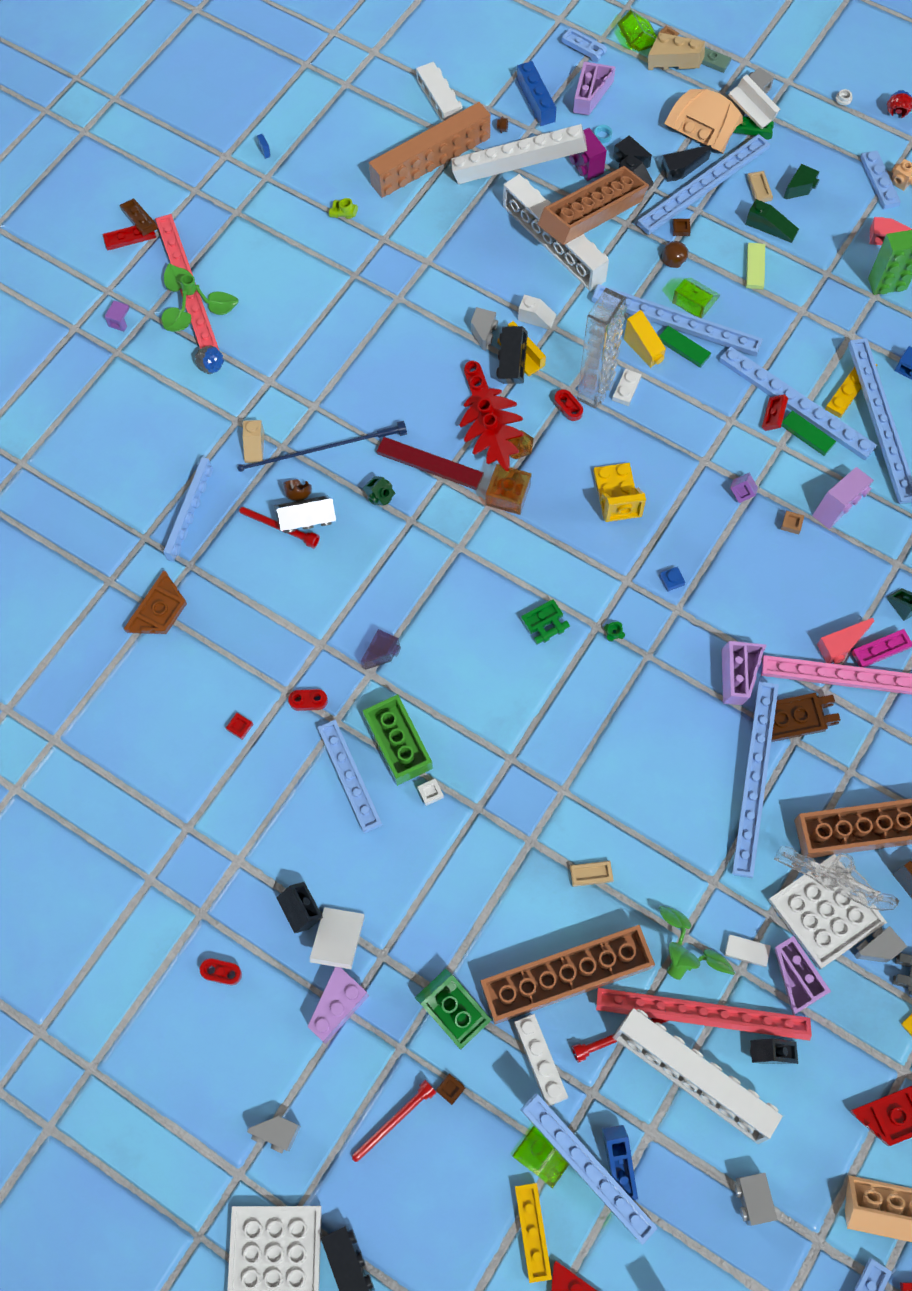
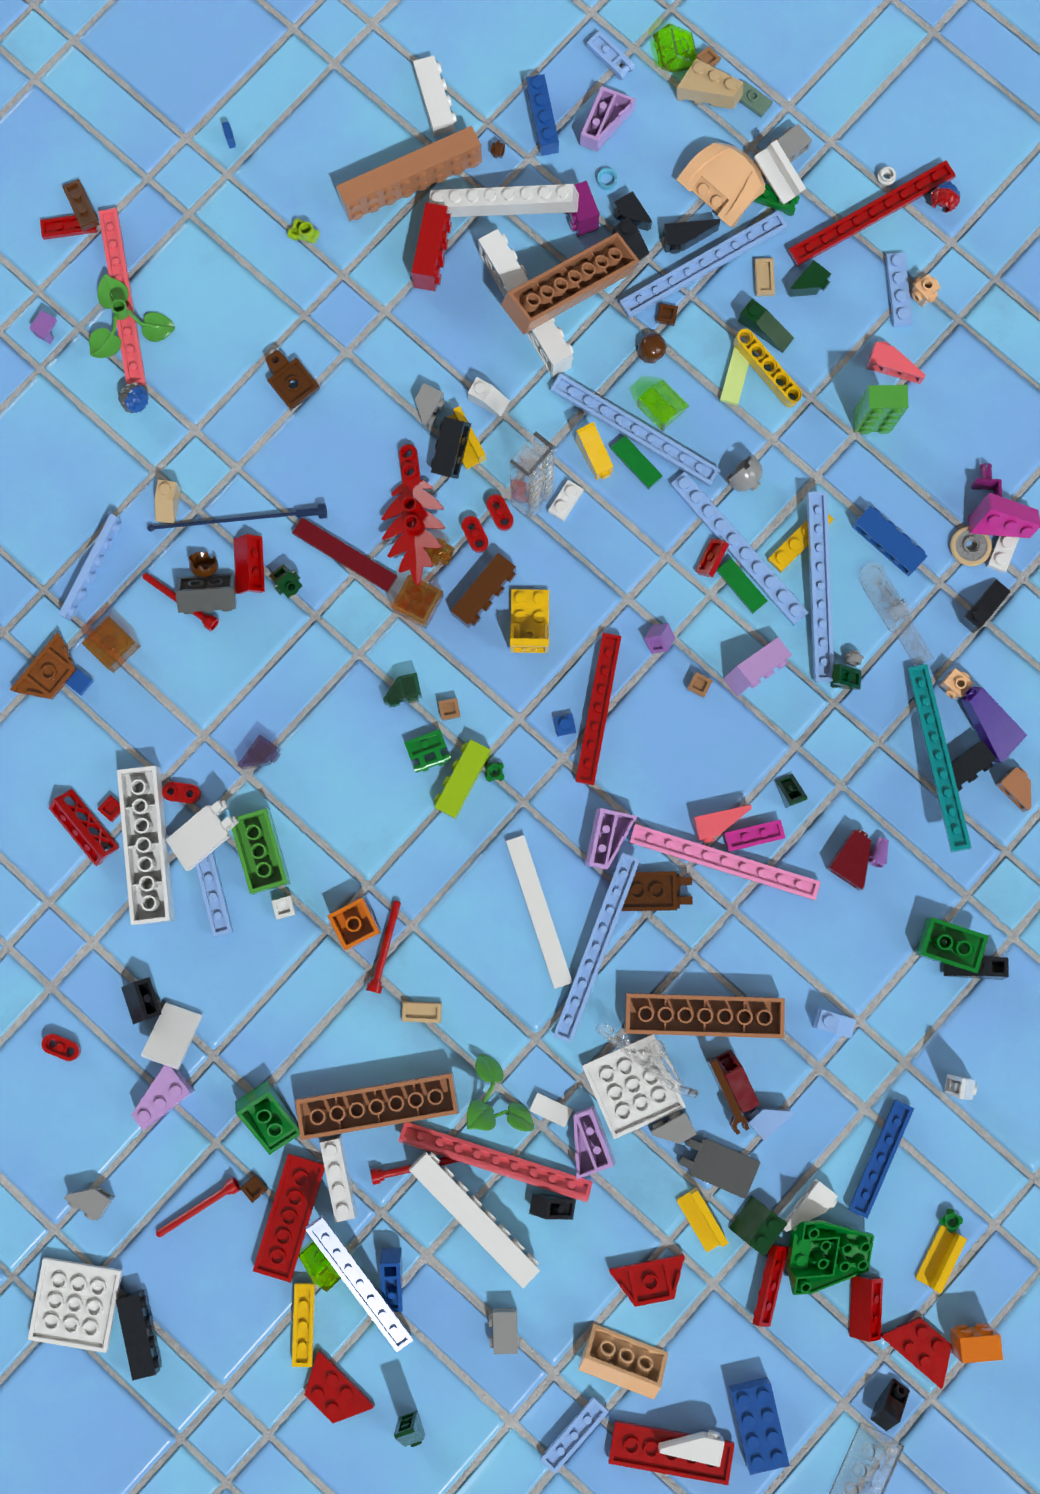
camera: 10 degrees right, 15 degrees up
(191, 613) = (79, 682): none -> blue tile
(210, 749) = (80, 828): none -> red fence
(218, 573) = (111, 644): none -> clear orange brick
(281, 754) = (145, 845): none -> white brick
(337, 731) = (201, 835): none -> white tile
(340, 483) = (249, 564): none -> red panel
(344, 320) = (283, 373): none -> reddish brown plate
(461, 201) = (430, 247): none -> red brick
(495, 1114) = (289, 1217): none -> red plate
(506, 794) = (354, 924): none -> orange brick
(511, 569) = (403, 689): none -> clear green slope
(538, 854) = (375, 984): none -> red piece
(549, 428) = (475, 535): none -> red plate
(558, 581) = (449, 709): none -> medium nougat plate
(568, 472) = (483, 591): none -> reddish brown brick
(585, 641) = (462, 779): none -> lime brick
(689, 756) = (539, 912): none -> white tile
(701, 559) = (598, 709): none -> red plate
(783, 252) = (768, 377): none -> yellow beam
(788, 339) = (746, 475): none -> light grey cylinder
(837, 127) = (871, 213): none -> red plate

